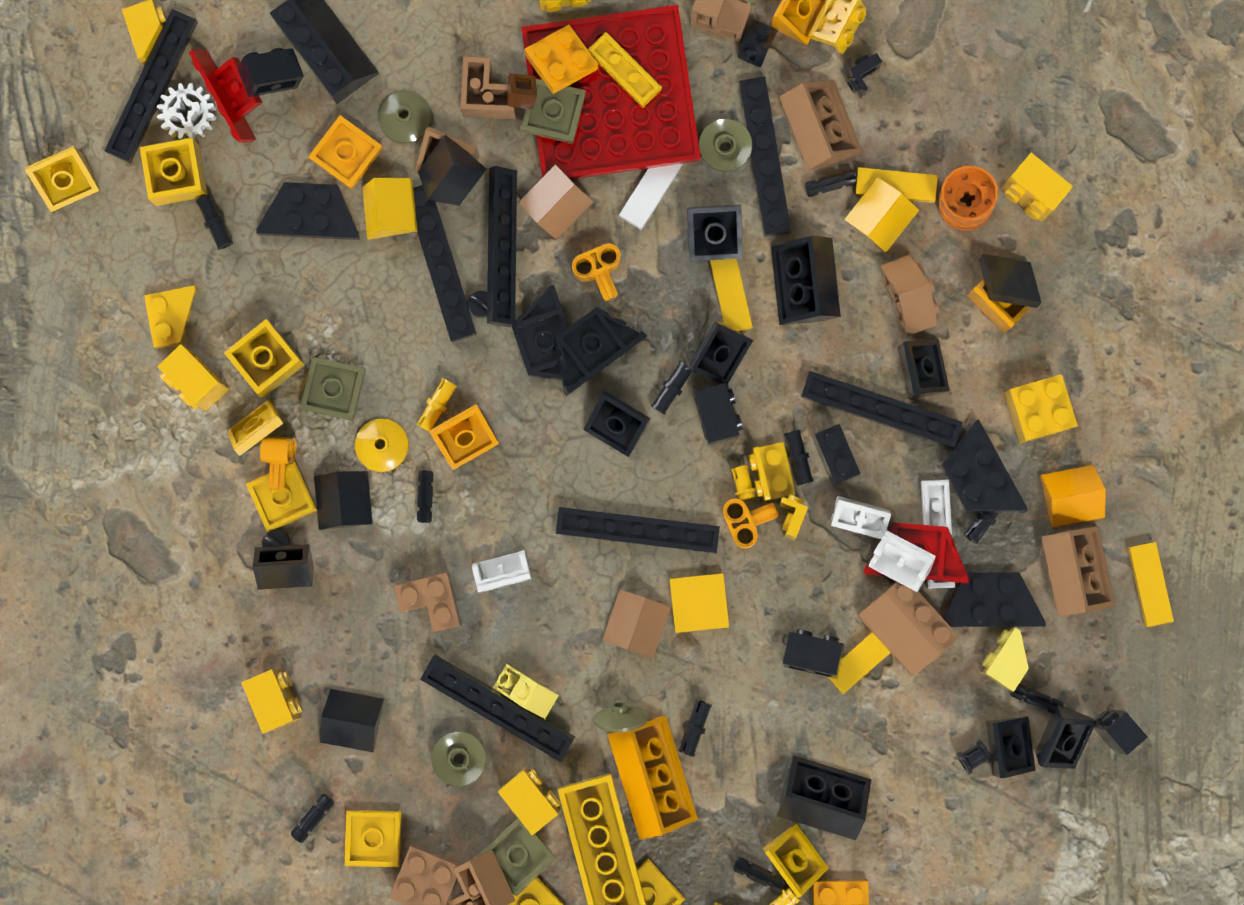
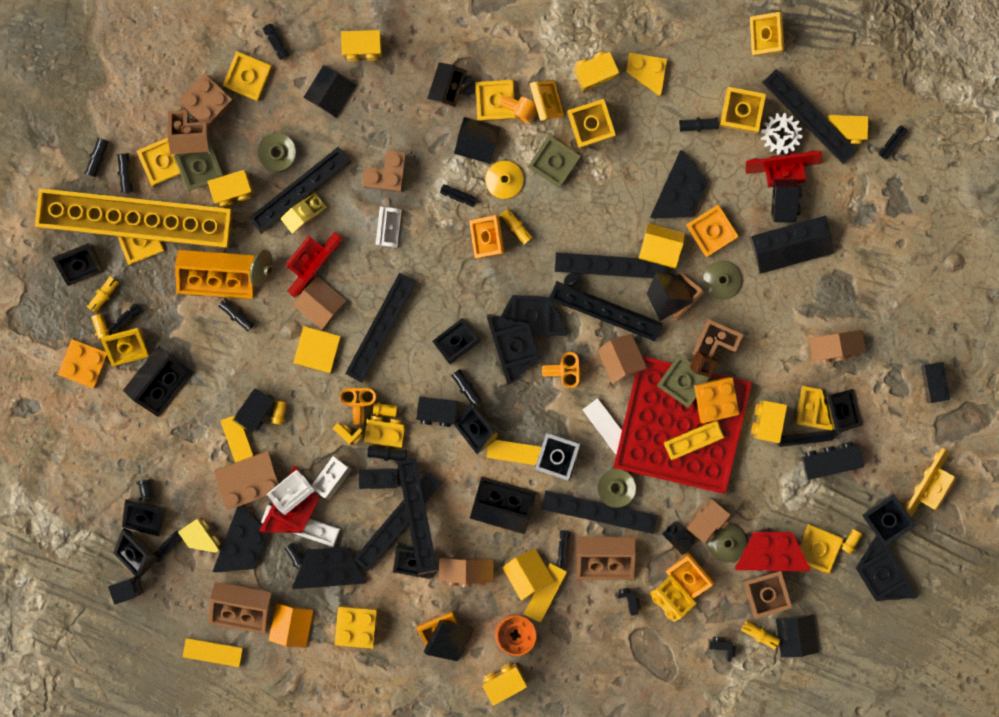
camera: 105 degrees right, 5 degrees up
(585, 659) = (308, 260): none -> red bracket
(802, 620) = (278, 413): none -> yellow pin
(866, 382) = (417, 516): none -> black plate

